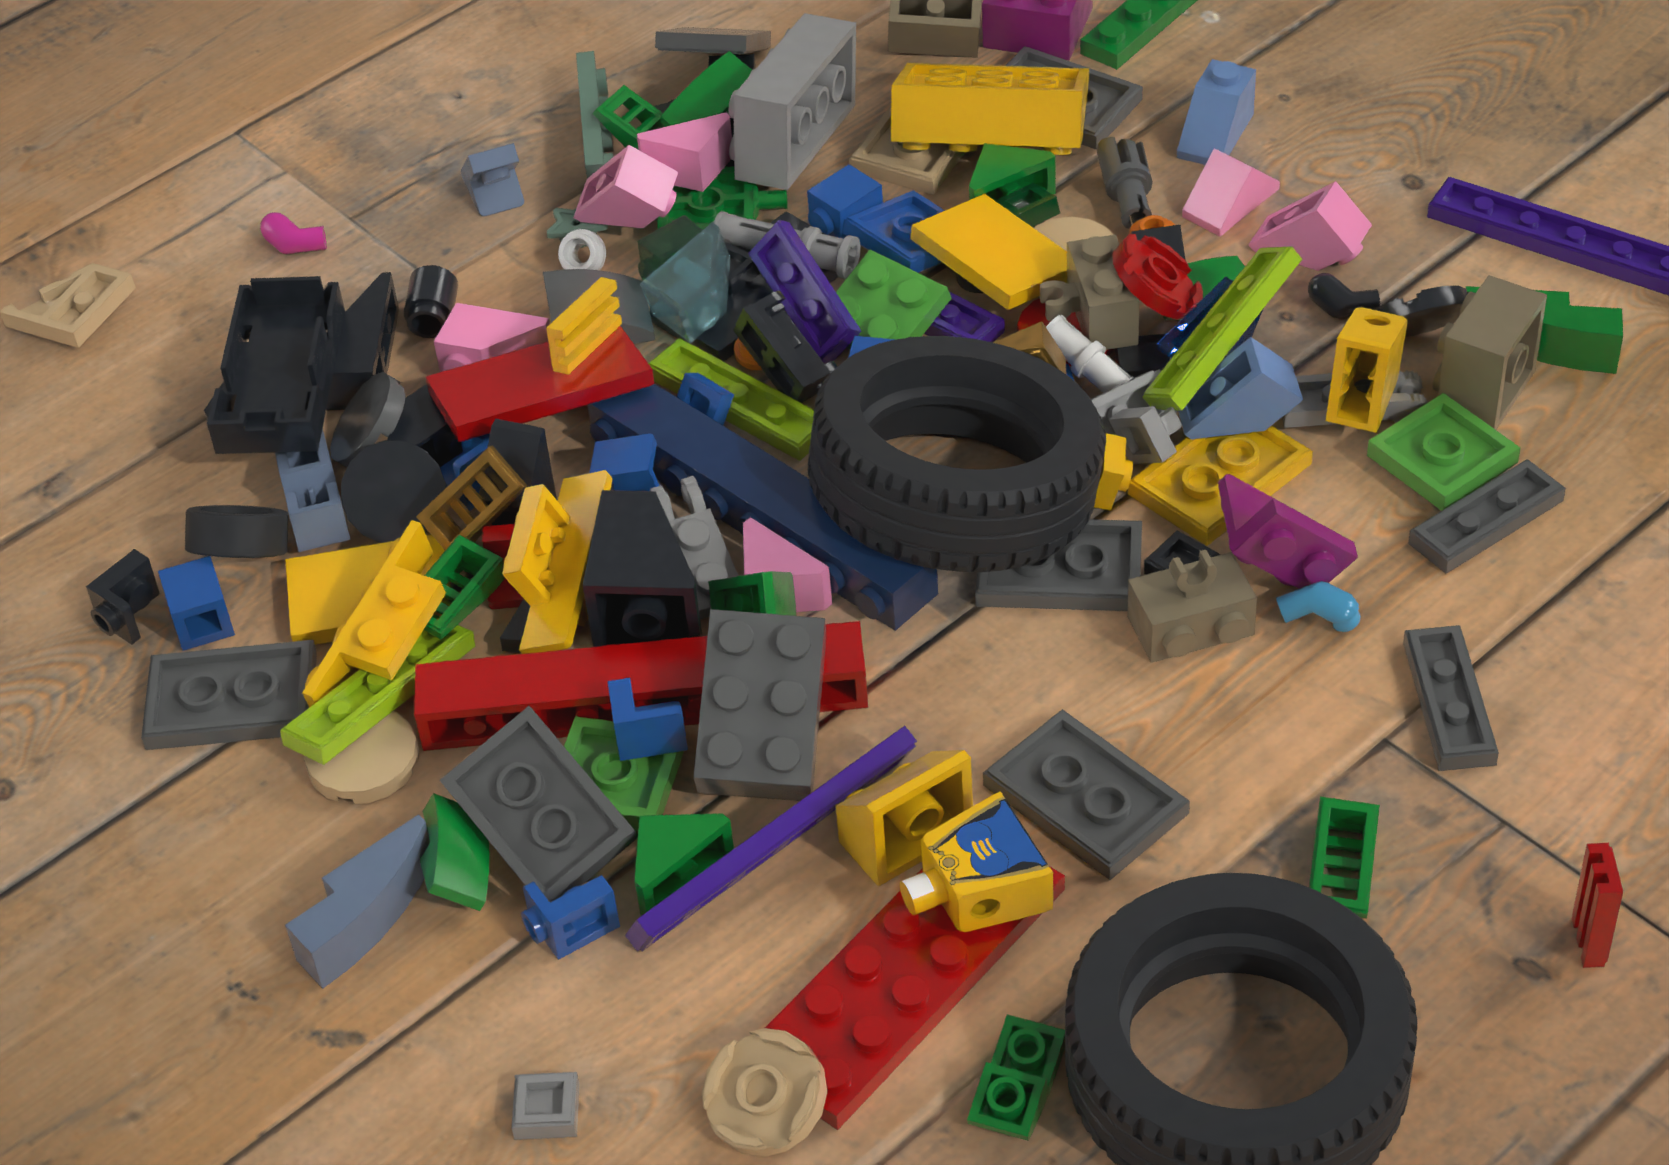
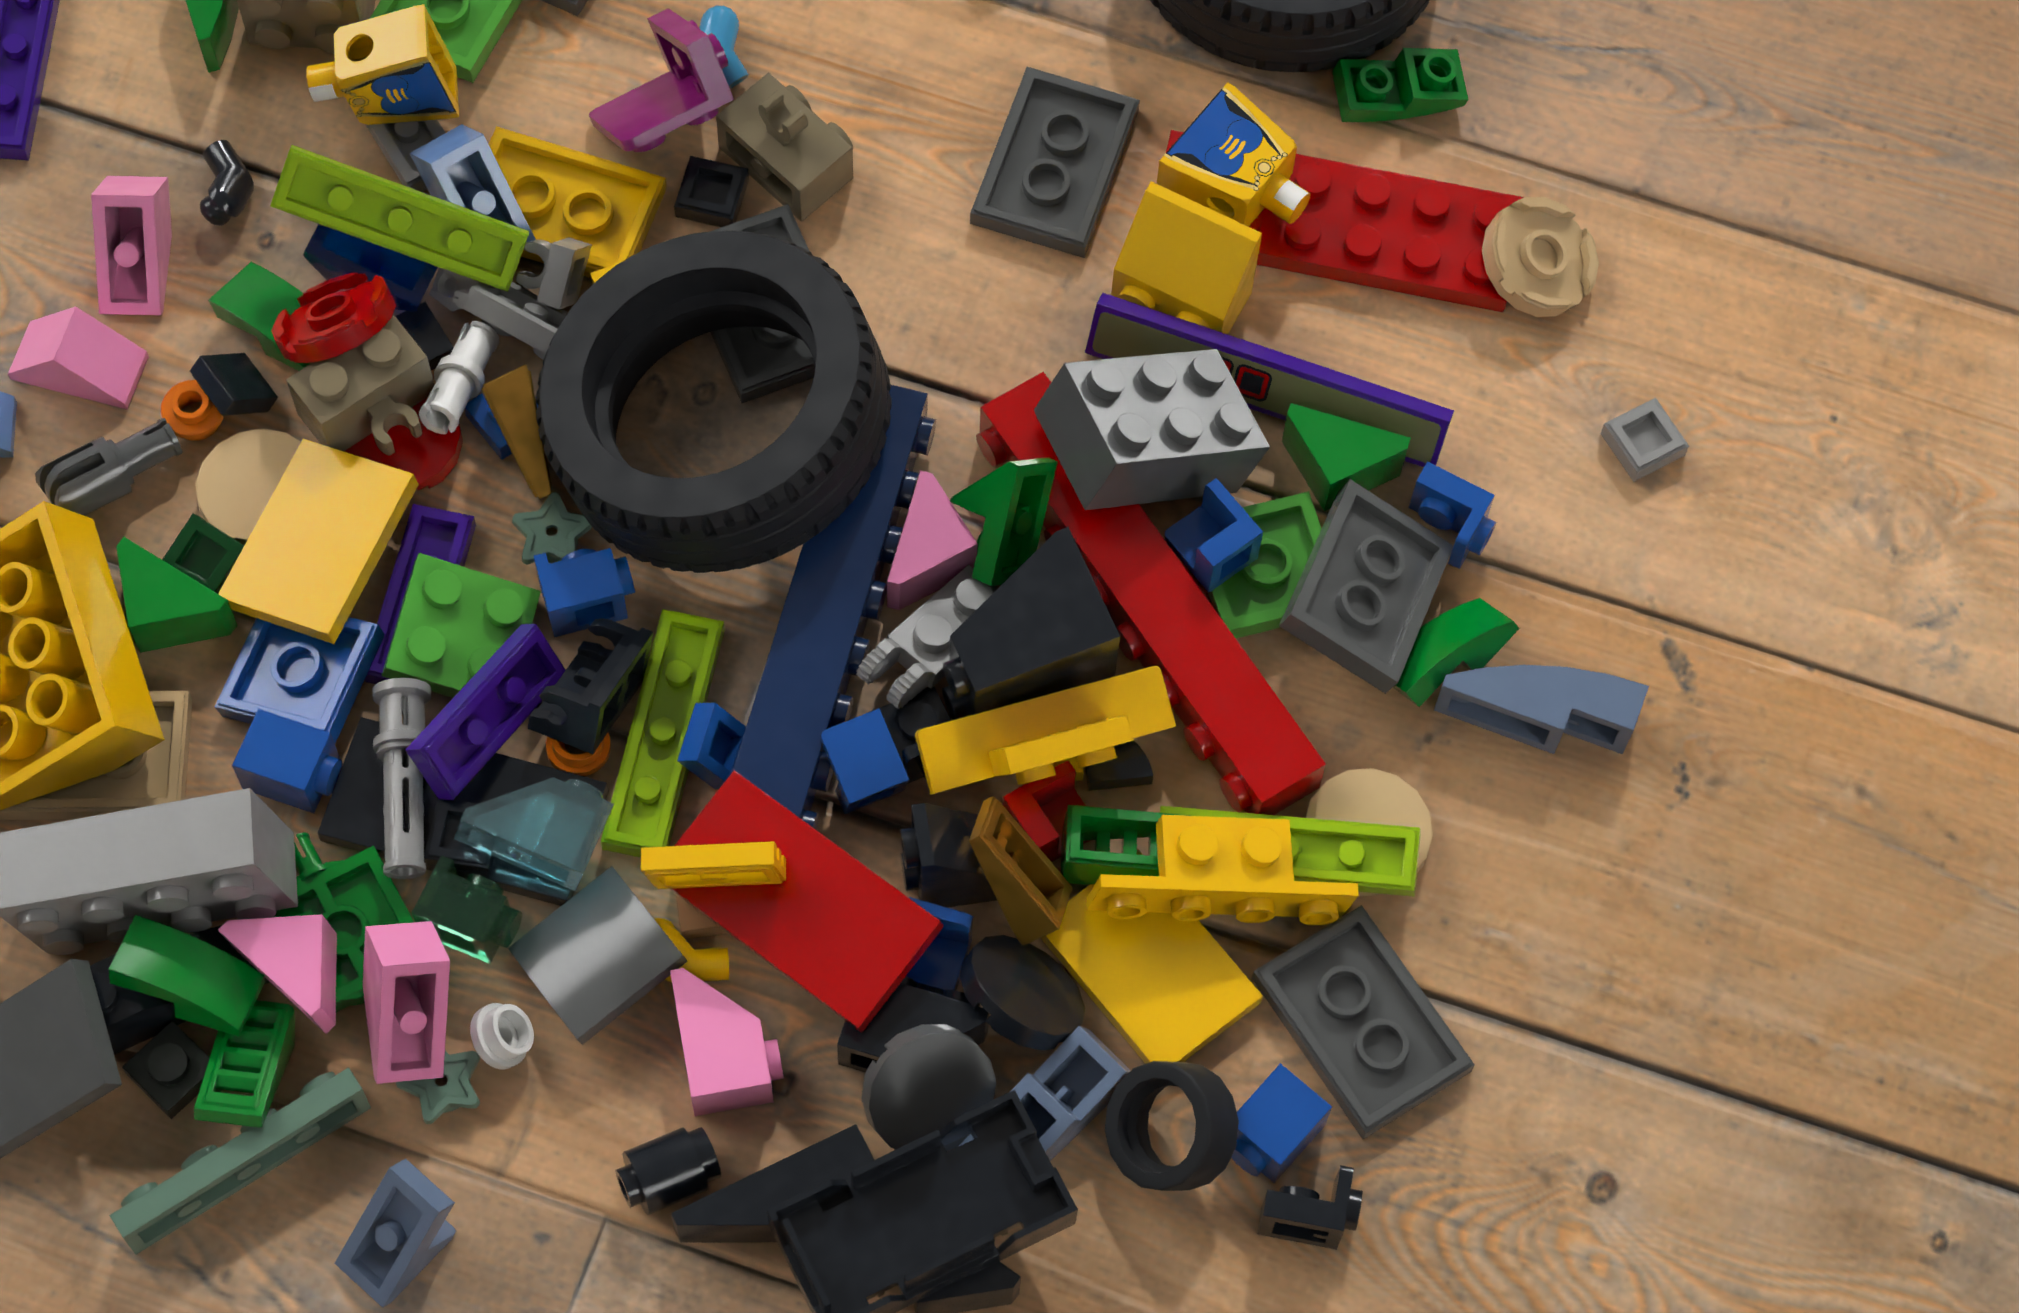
camera: 125 degrees left, 20 degrees up
(1429, 310) = (260, 69): black tile -> none

